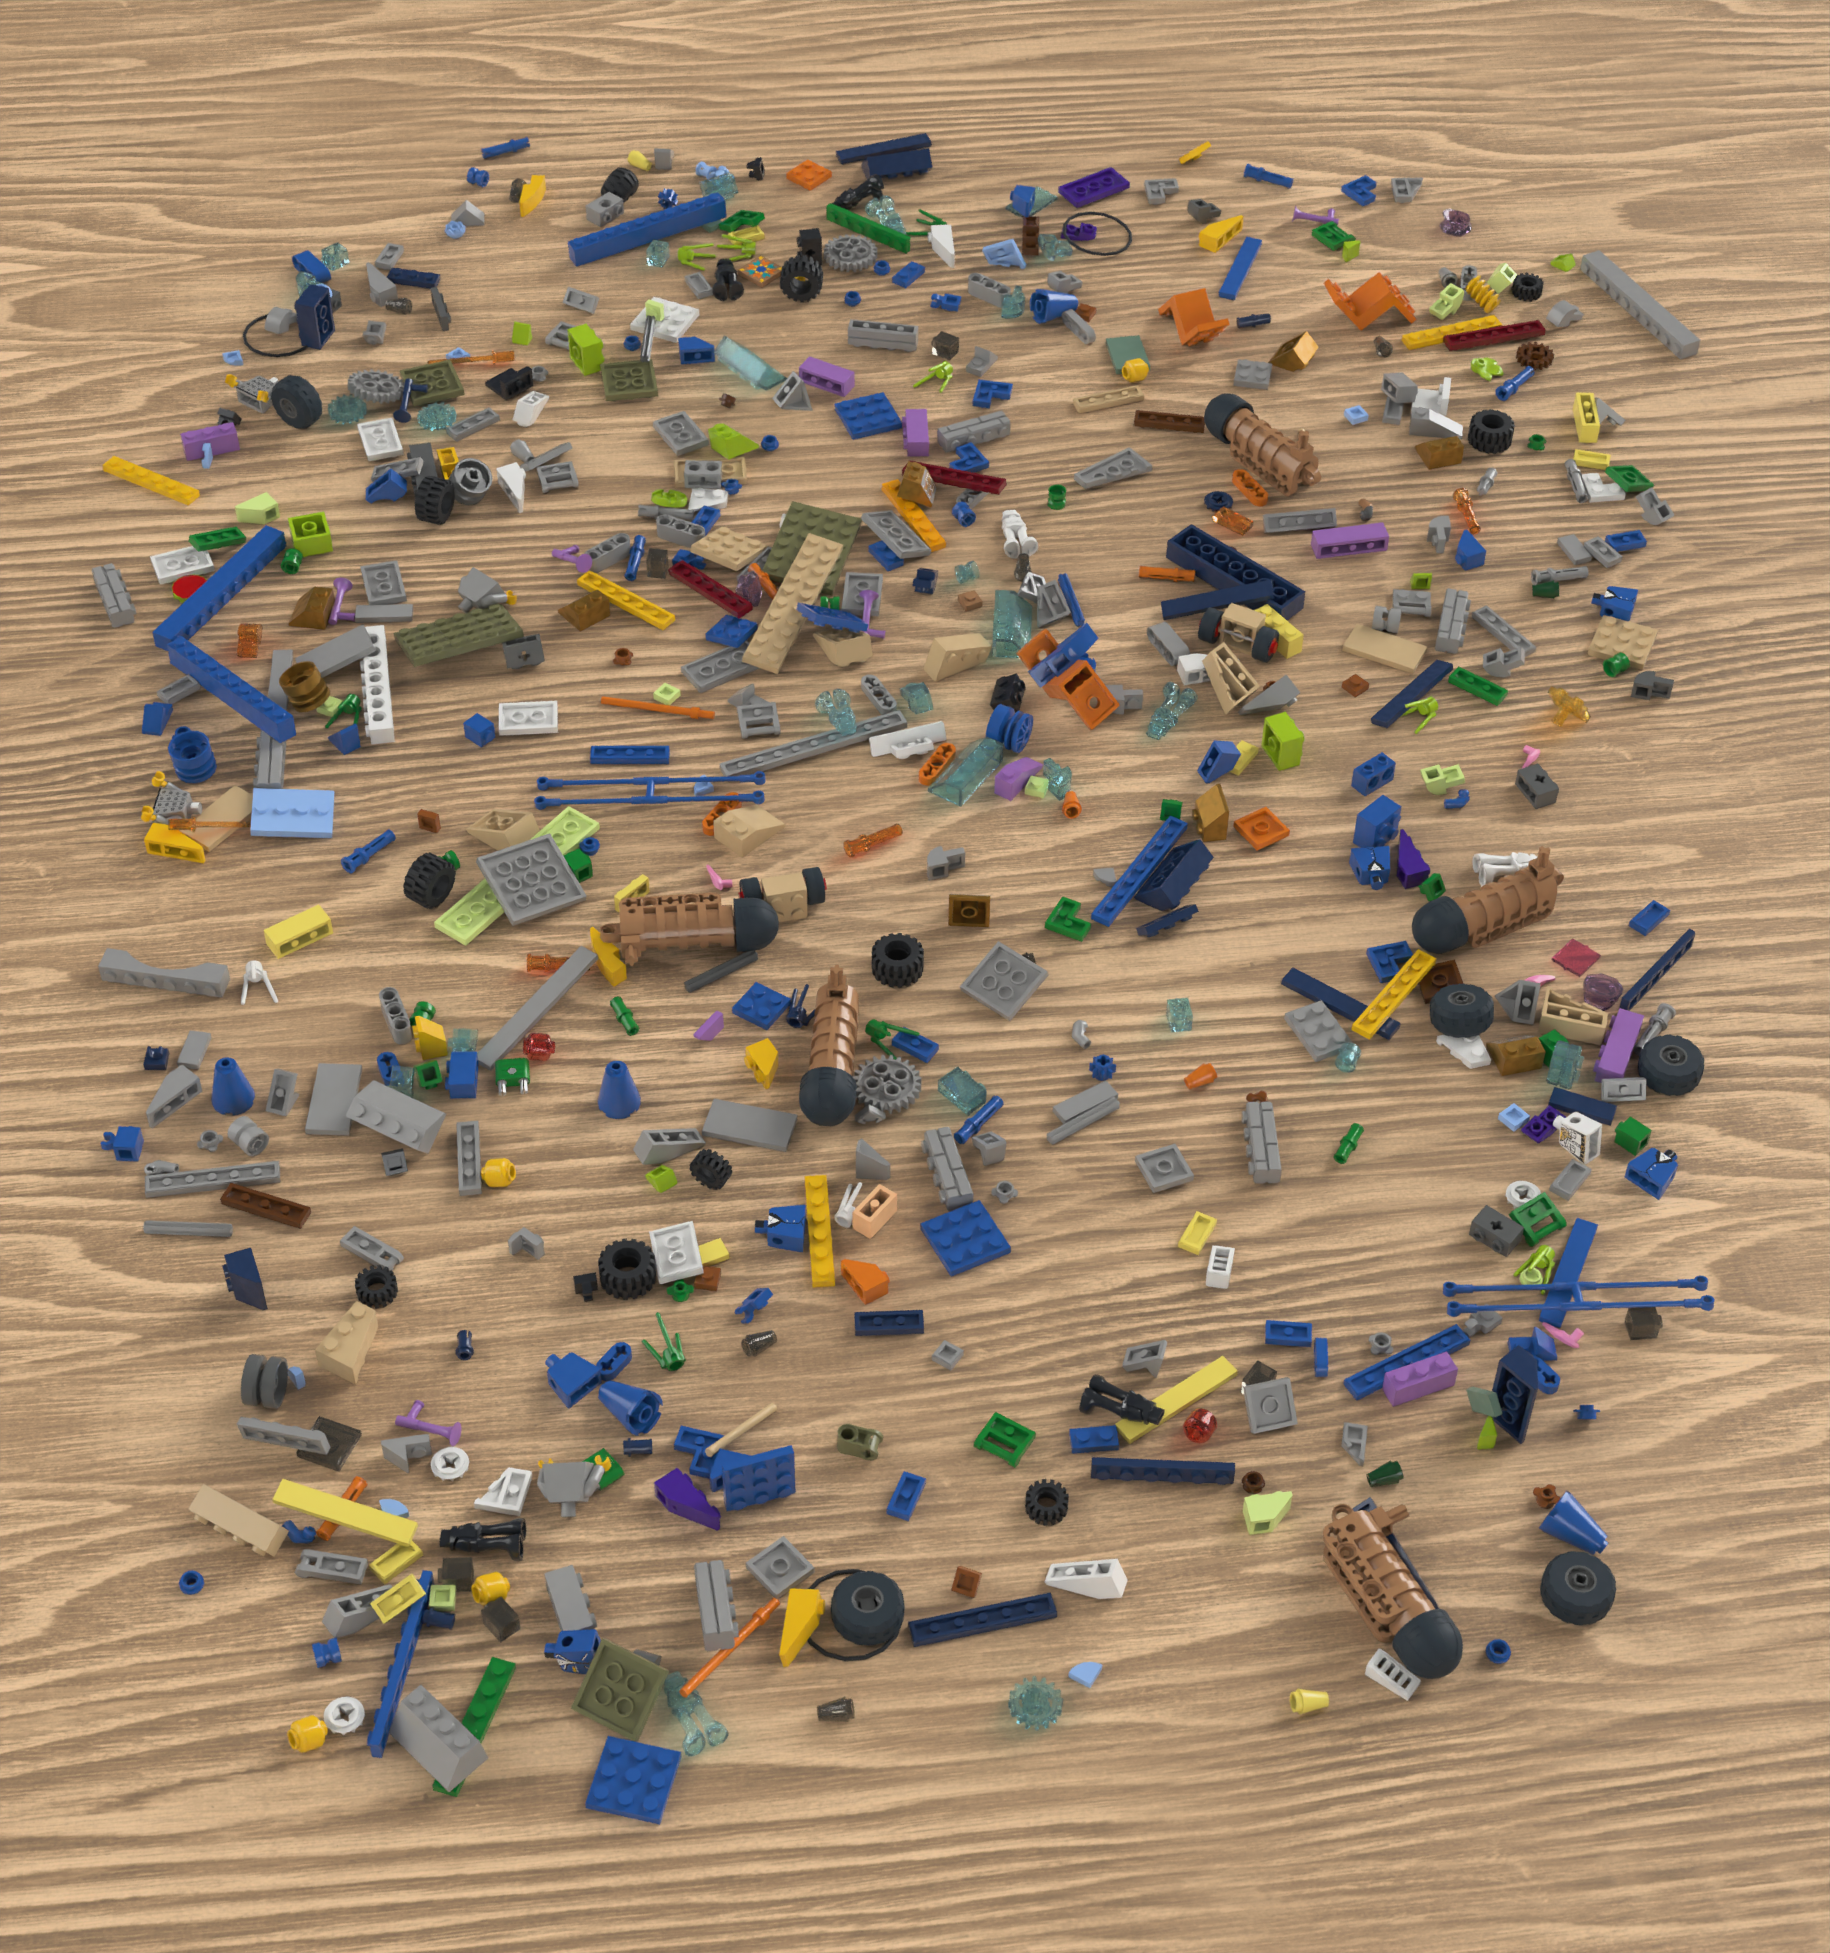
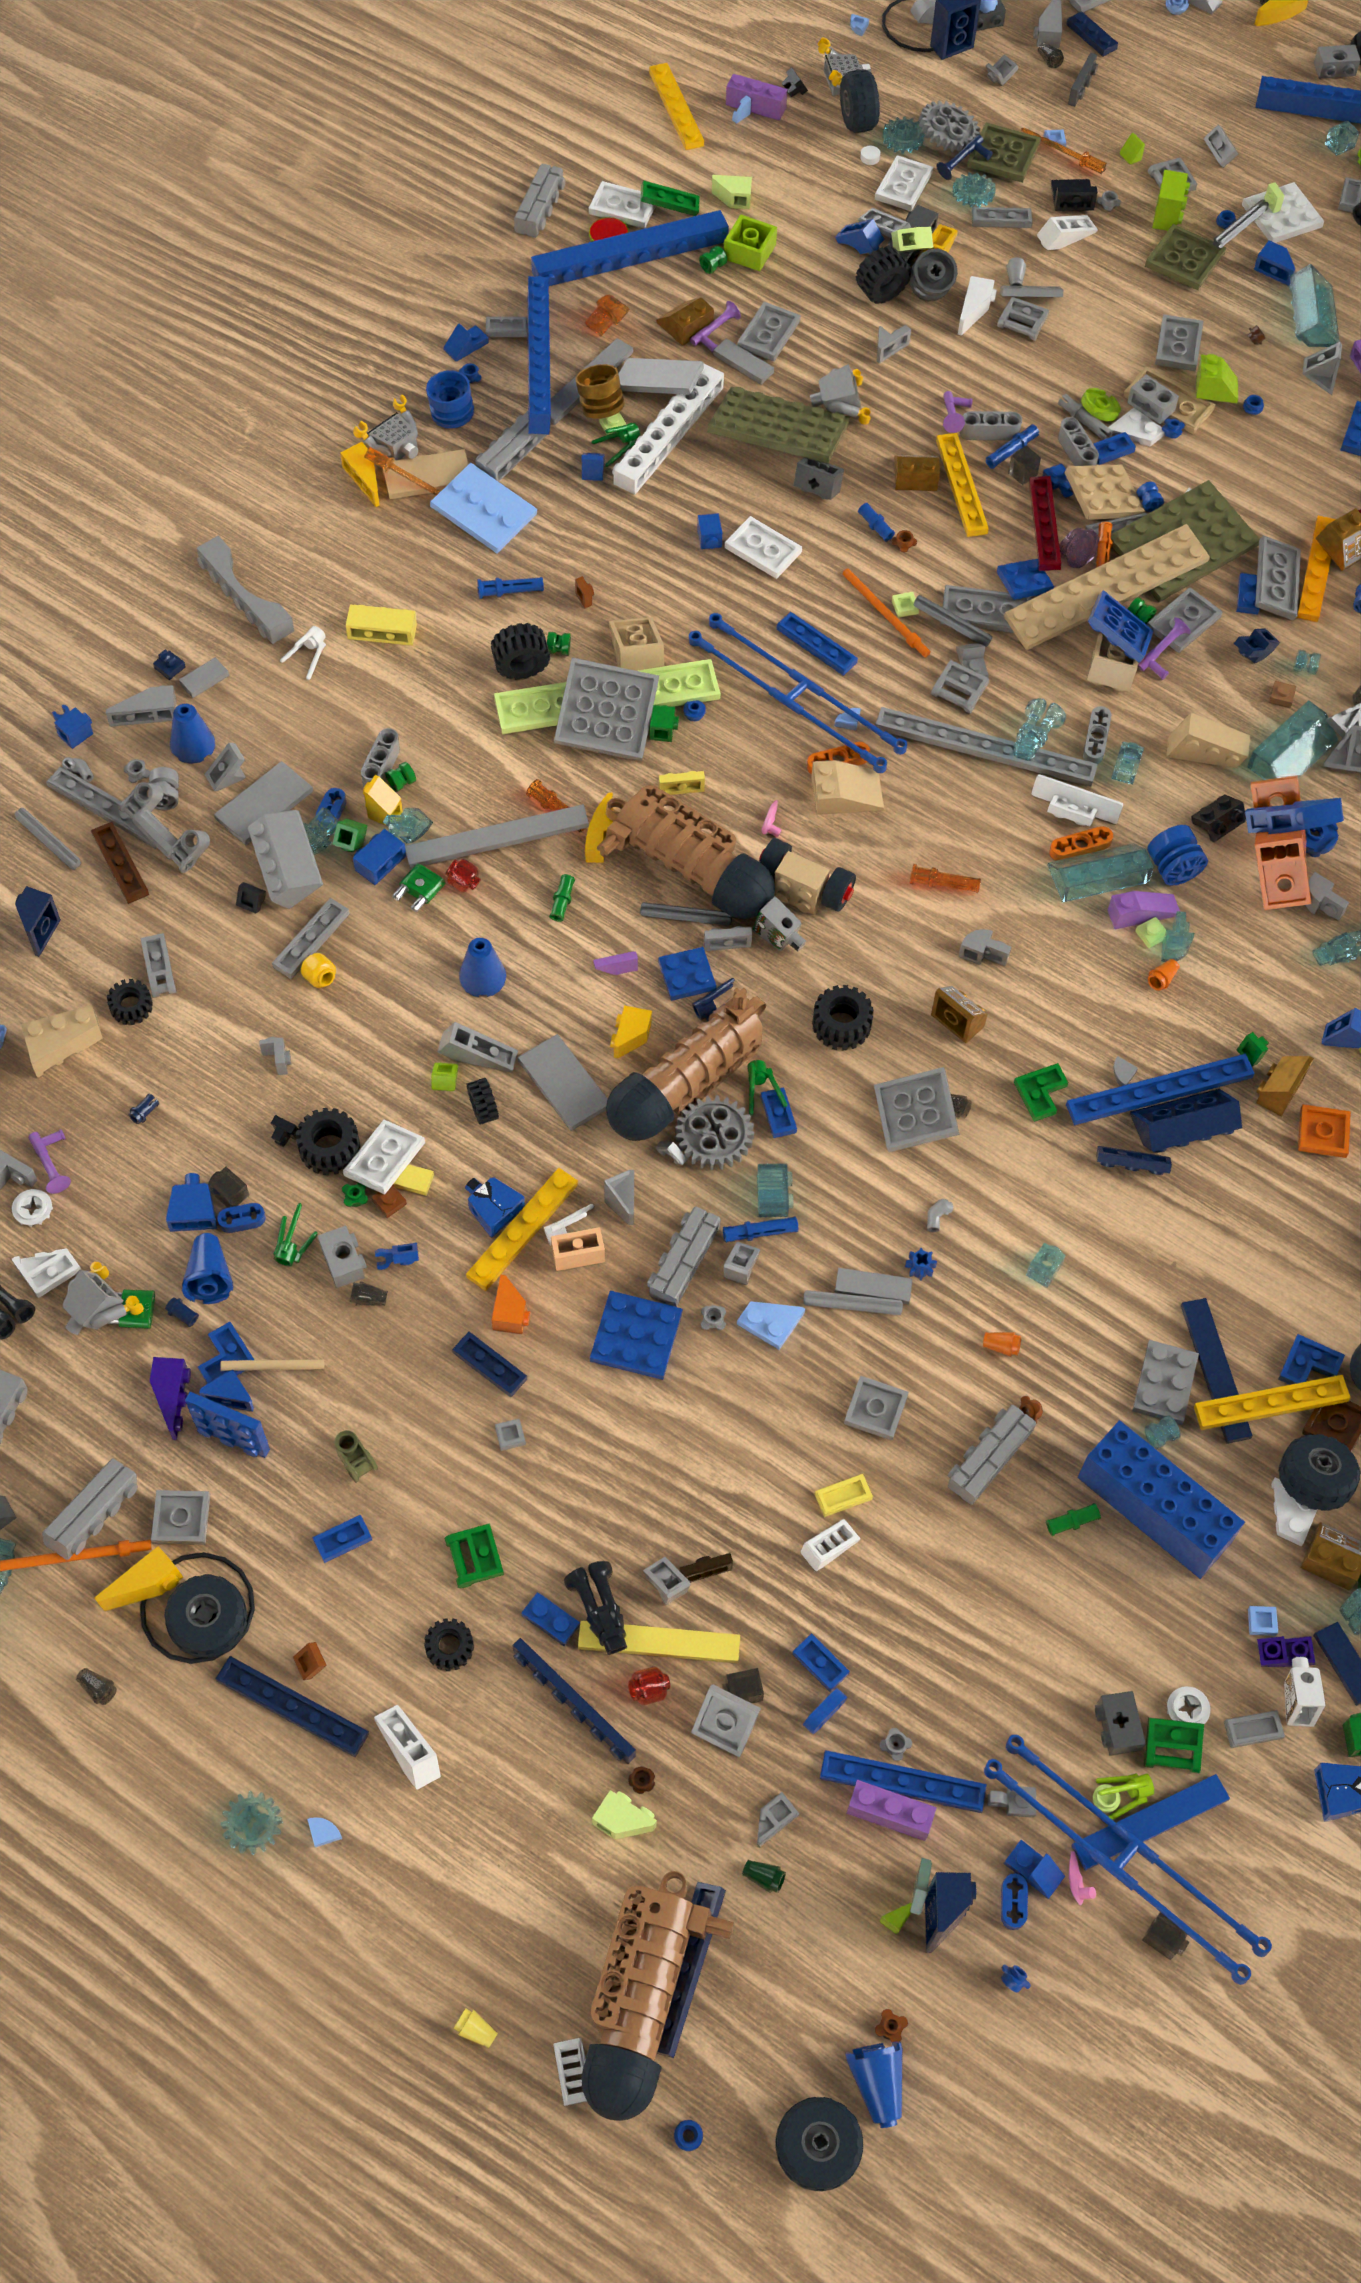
camera: 40 degrees right, 15 degrees up
(276, 1164) = (180, 850): none -> light grey piece
(334, 435) = (870, 155): none -> white tile
(433, 466) = (912, 239): none -> yellowish green slope
(479, 543) = (889, 344): none -> light grey slope
(586, 1345) = (228, 1188): none -> clear smoke brick
(591, 656) = (876, 522): none -> blue pin
(710, 683) = (952, 620): none -> dark grey axle
(714, 1332) = (342, 1270): none -> light grey brick
(762, 534) = (1149, 496): none -> blue wheel
(768, 965) = (727, 938): none -> light grey plate
(796, 934) = (779, 926): none -> light grey torso
(1043, 1169) = (770, 1321): none -> light blue wing
(1164, 1329) = (707, 1567): none -> dark brown plate
(1390, 1089) = (1160, 1499): none -> blue brick

